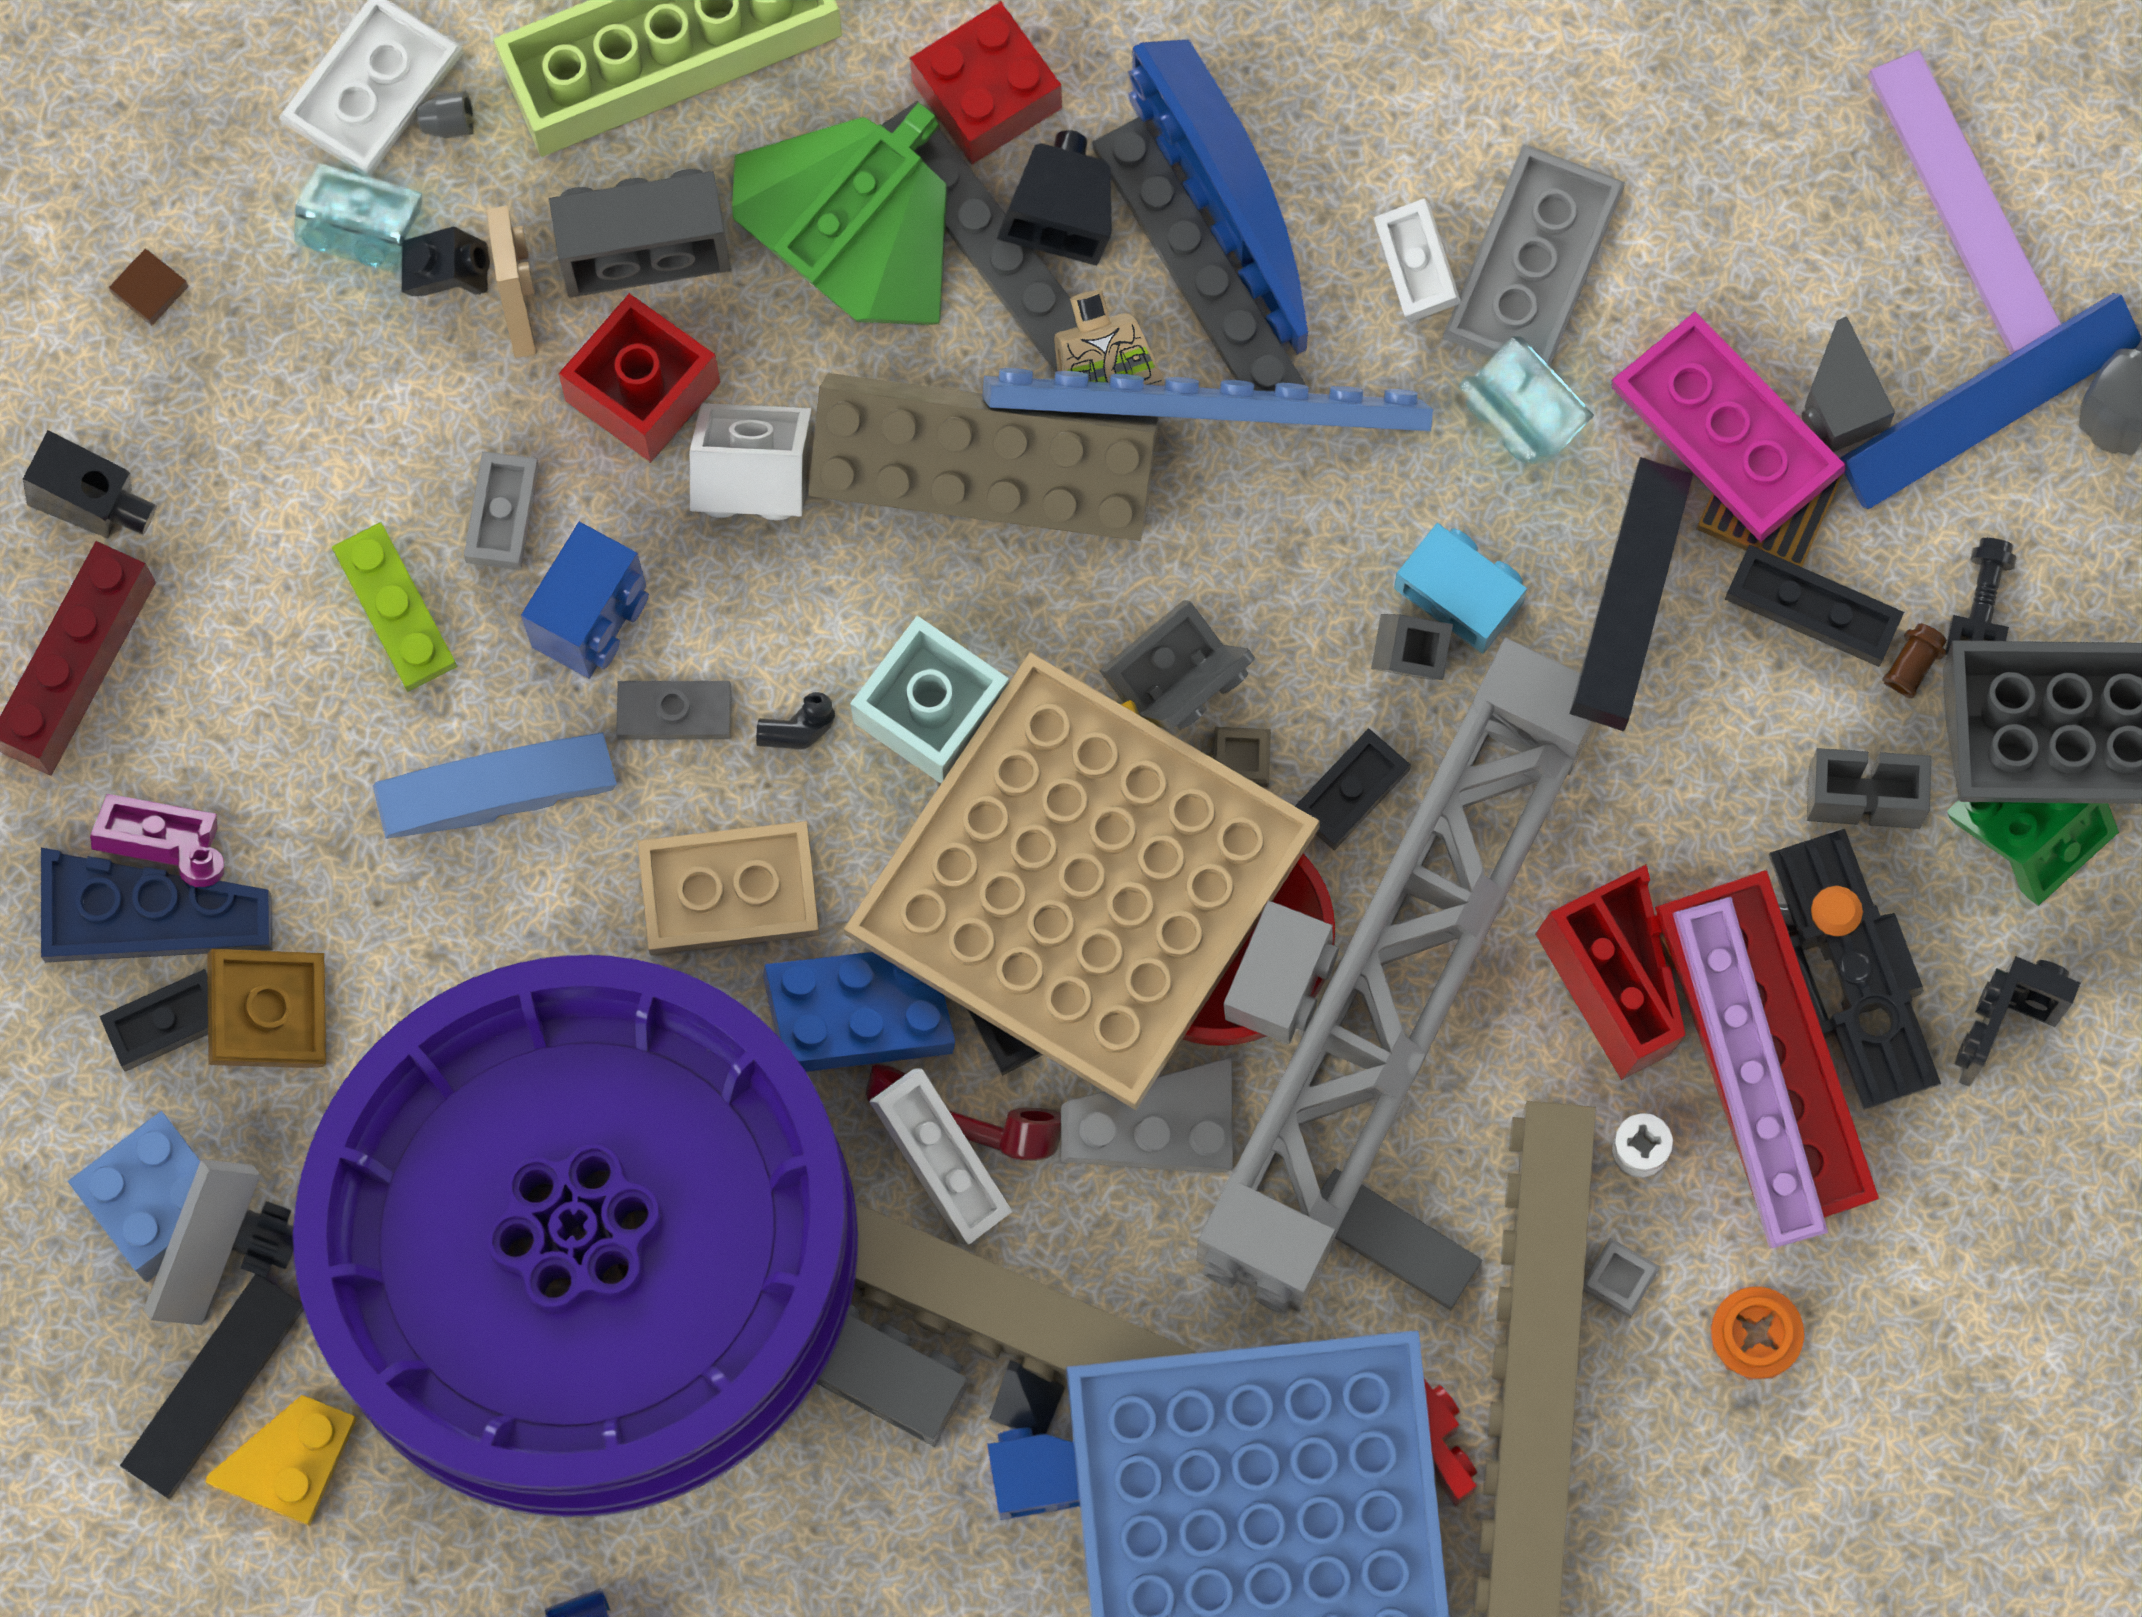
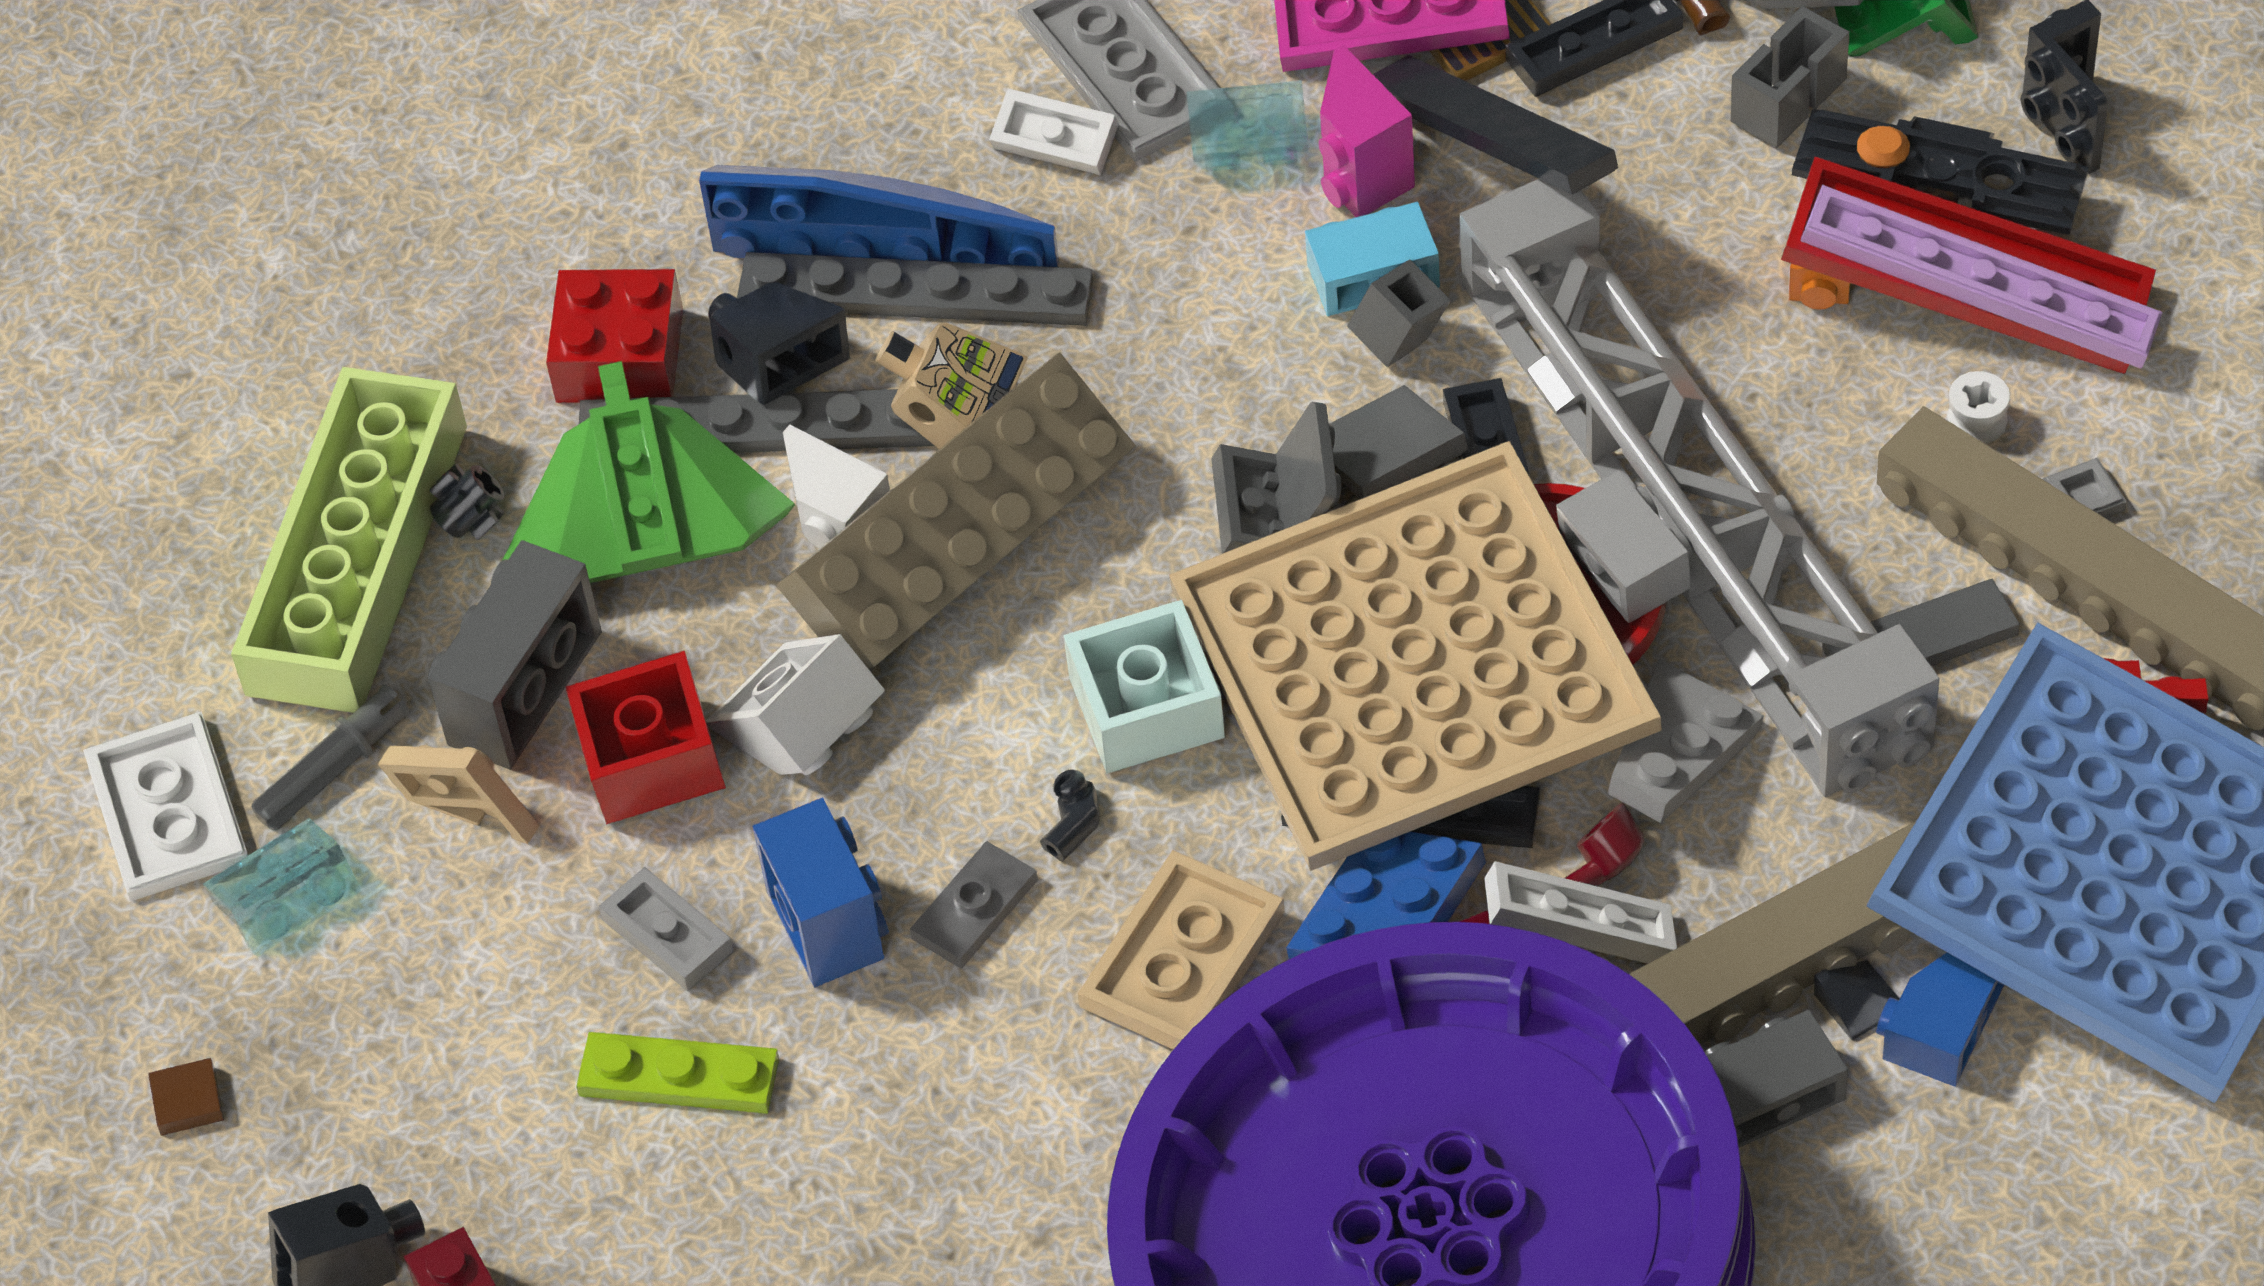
camera: 50 degrees left, 20 degrees down
(444, 262) = (389, 840): black bracket -> none
(446, 115) = (254, 759): dark grey hose -> none
(485, 167) = (329, 758): none -> dark grey axle
(493, 785) = (923, 1081): medium blue slope -> none
(763, 92) = (467, 501): none -> black gear
(954, 342) = (829, 485): none -> white slope
(1185, 399) = (1039, 334): medium blue plate -> none
(1287, 720) = (1392, 442): none -> dark grey tile
(1555, 499) = (1363, 138): none -> dark pink slope
(1617, 971) = (1814, 333): red wedge -> none
(1754, 1305) = (2222, 405): orange gear -> none

